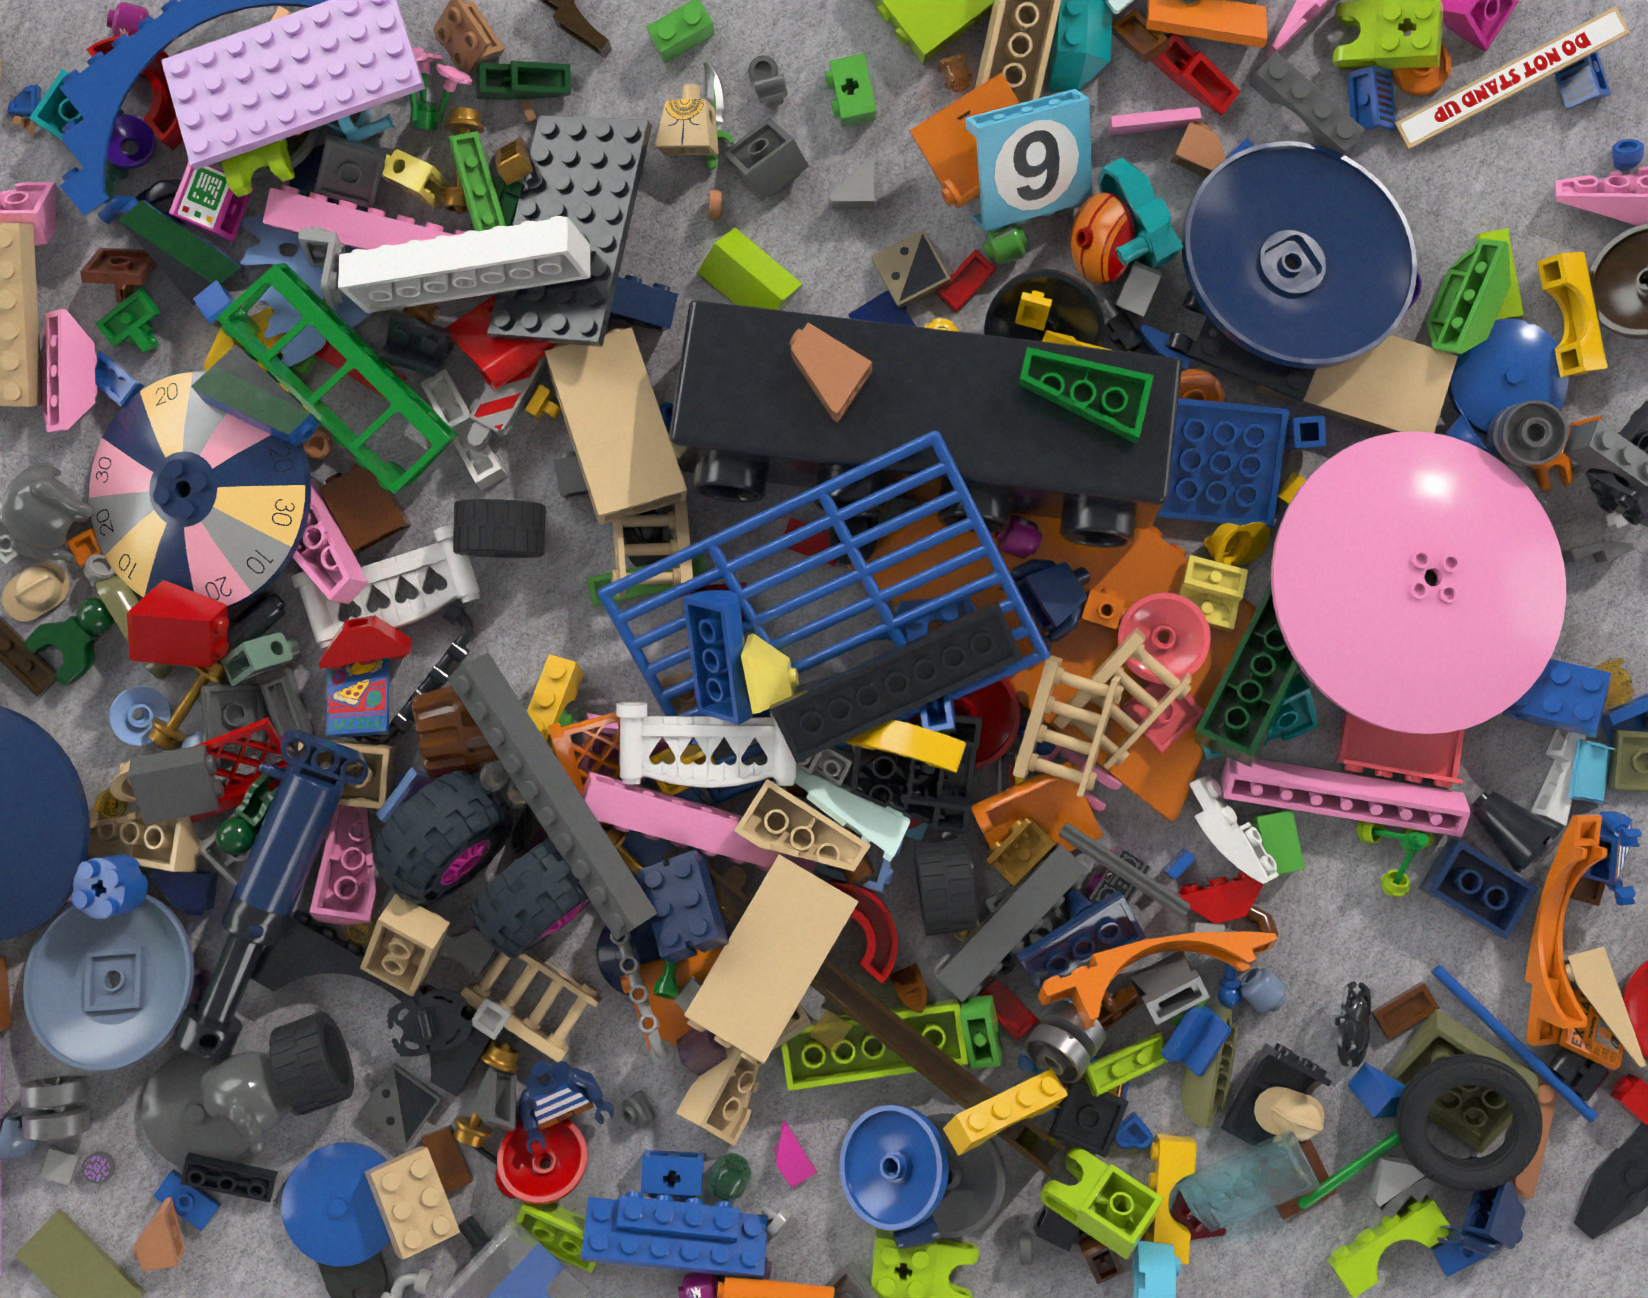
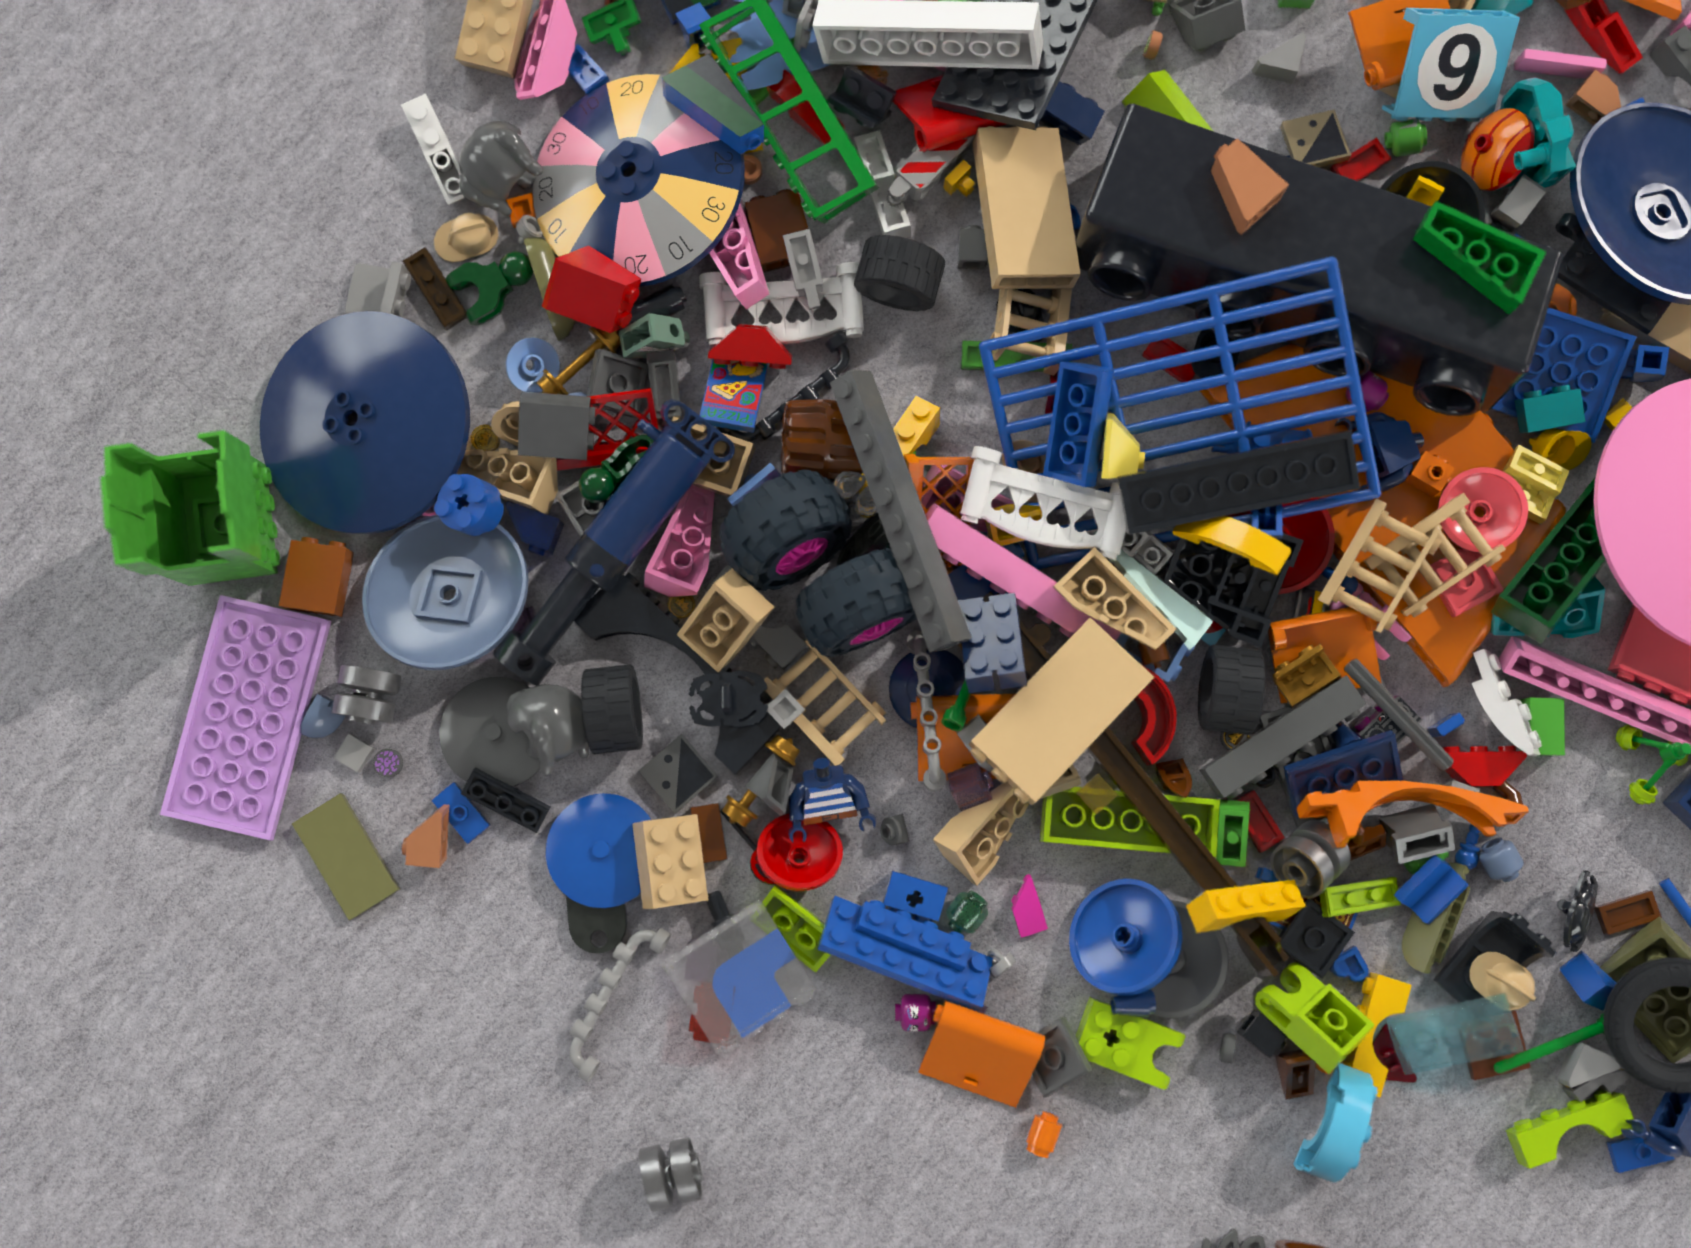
camera: 10 degrees right, 5 degrees down
(398, 544) = (804, 266): none -> light grey hinge
(1215, 508) = (1549, 410): none -> teal brick

